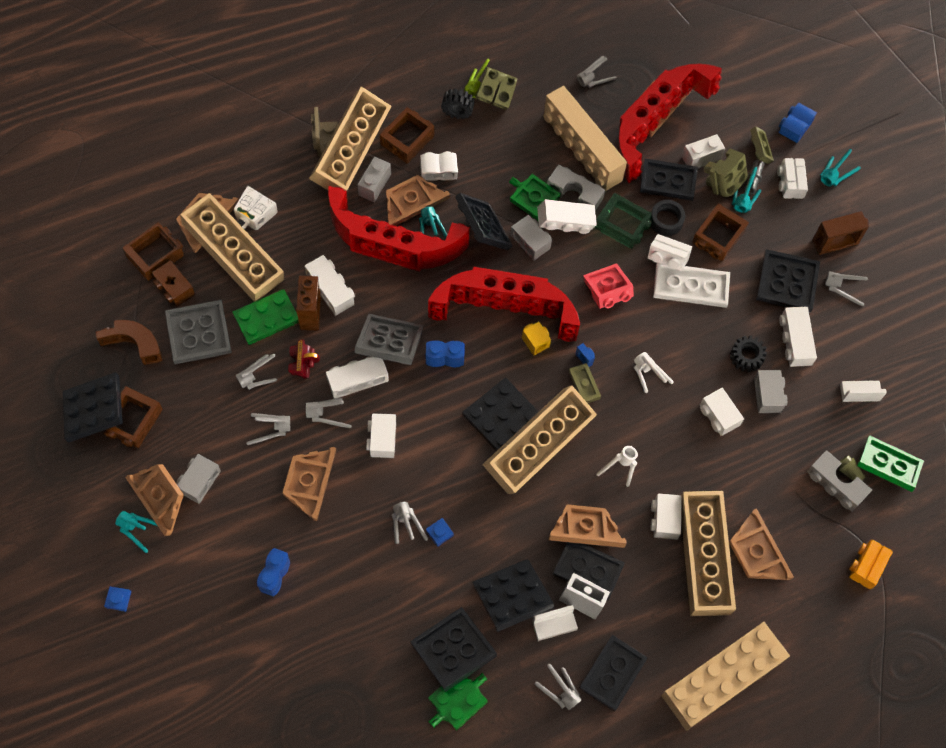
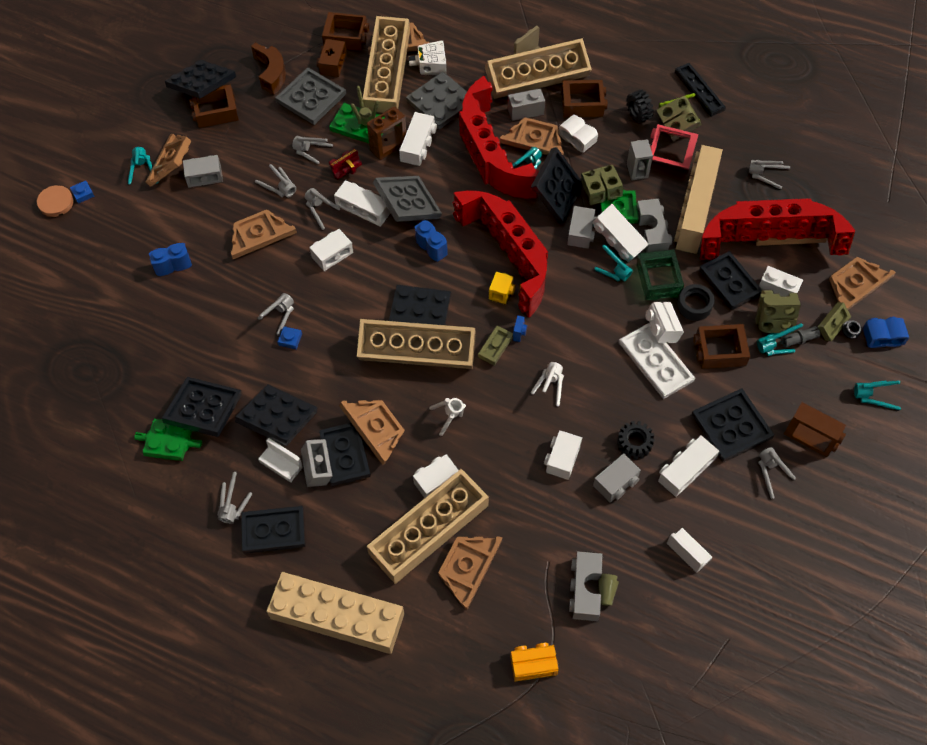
camera: 55 degrees right, 5 degrees down
(105, 630) = (55, 201): none -> nougat tile
(270, 304) = (365, 114): none -> olive plant
(302, 236) = (438, 98): none -> dark grey plate
(474, 50) = (699, 87): none -> black tile
(509, 190) = (602, 183): none -> olive hips
(510, 146) = (639, 159): none -> light grey brick
(535, 110) = (689, 153): none -> coral window
(595, 242) = (621, 271): none -> teal plant
(609, 286) = (593, 303): coral plate -> none
(741, 102) = (858, 280): none -> medium nougat wing
(776, 140) = (855, 326): none -> black plate
(793, 178) = (829, 364): white brick -> none
(890, 463) = (641, 616): plate -> none

